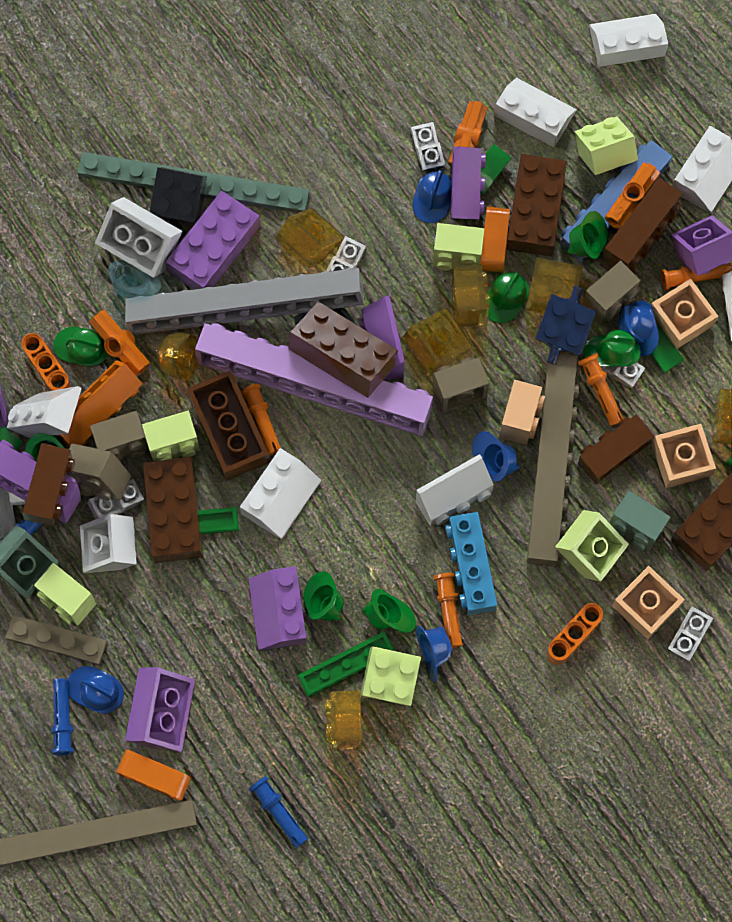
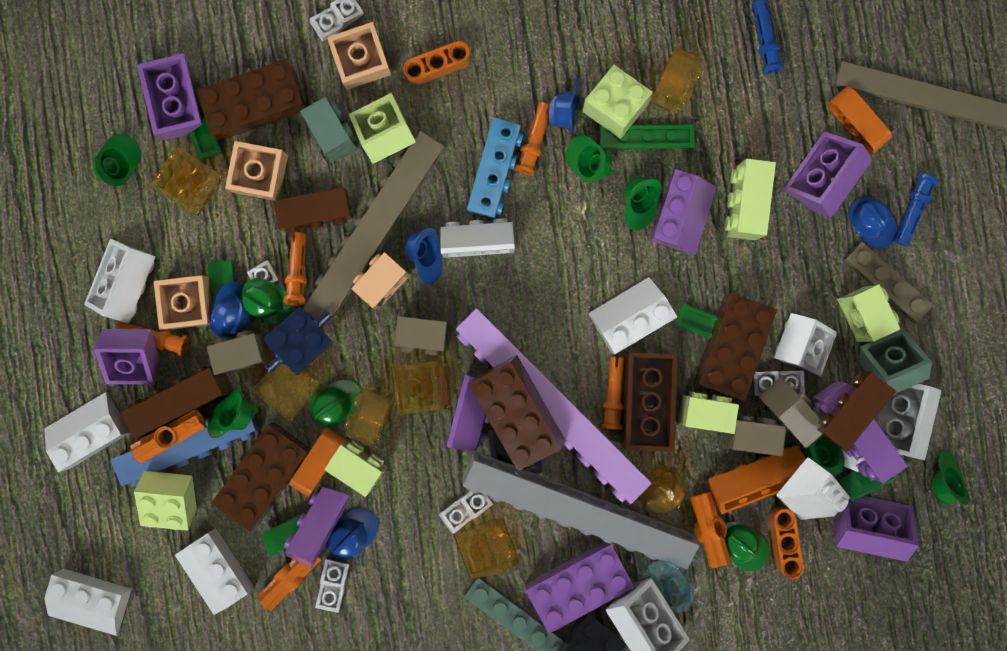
camera: 150 degrees left, 15 degrees up
(224, 644) = (750, 199): none -> yellowish green brick

